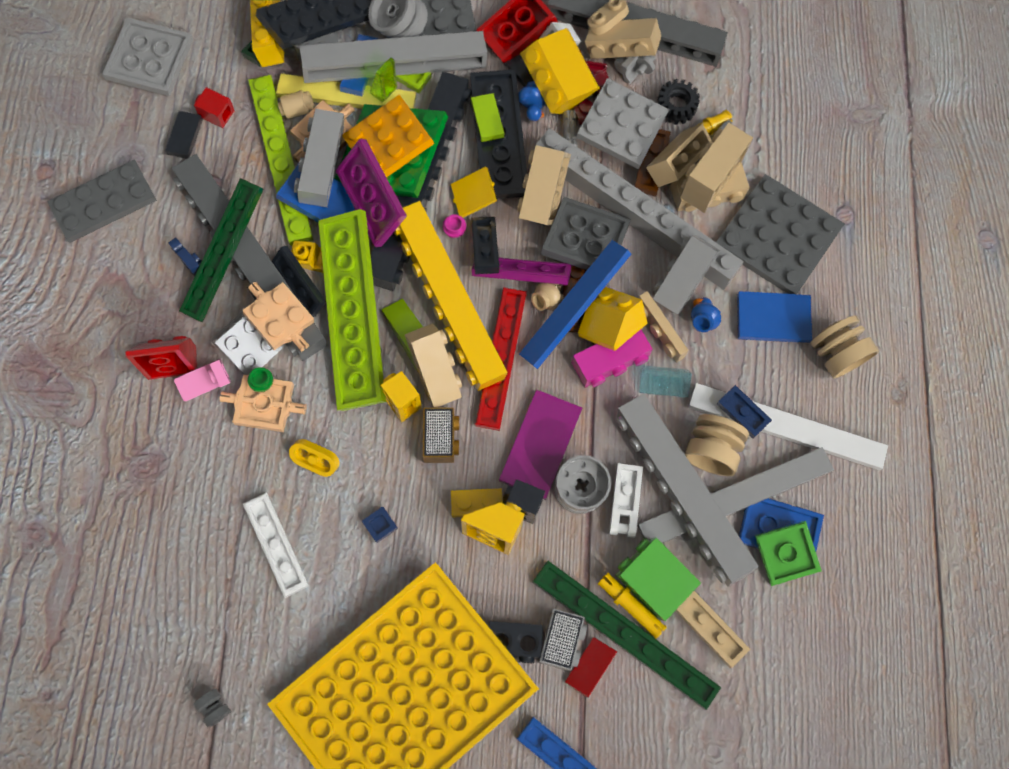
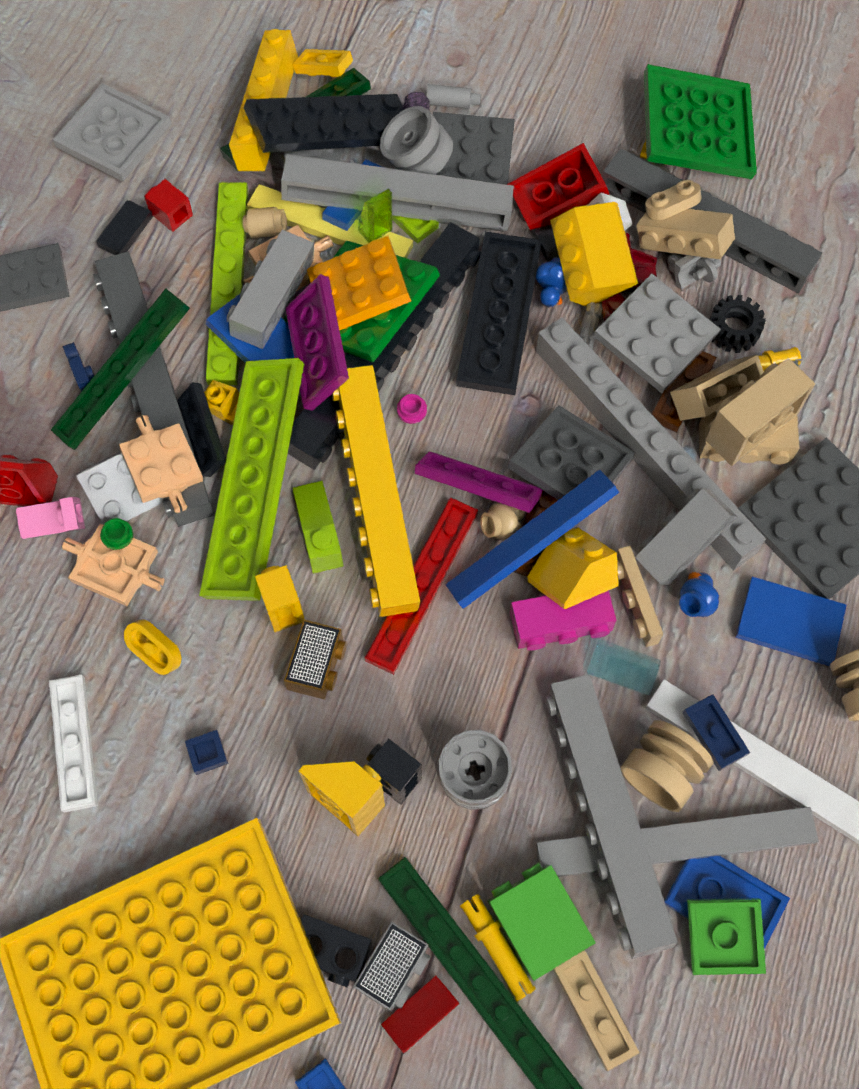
camera: 20 degrees right, 5 degrees down
(434, 365) = (332, 569): tan brick -> none
(468, 501) = (329, 750): yellow plate -> none
(473, 192) = (447, 373): yellow piece -> none
(485, 245) = (441, 440): black tile -> none
(487, 117) = (489, 288): lime tile -> none
(541, 442) = (441, 702): magenta tile -> none
(543, 185) = (533, 382): tan brick -> none
(626, 499) = (529, 805): white plate -> none

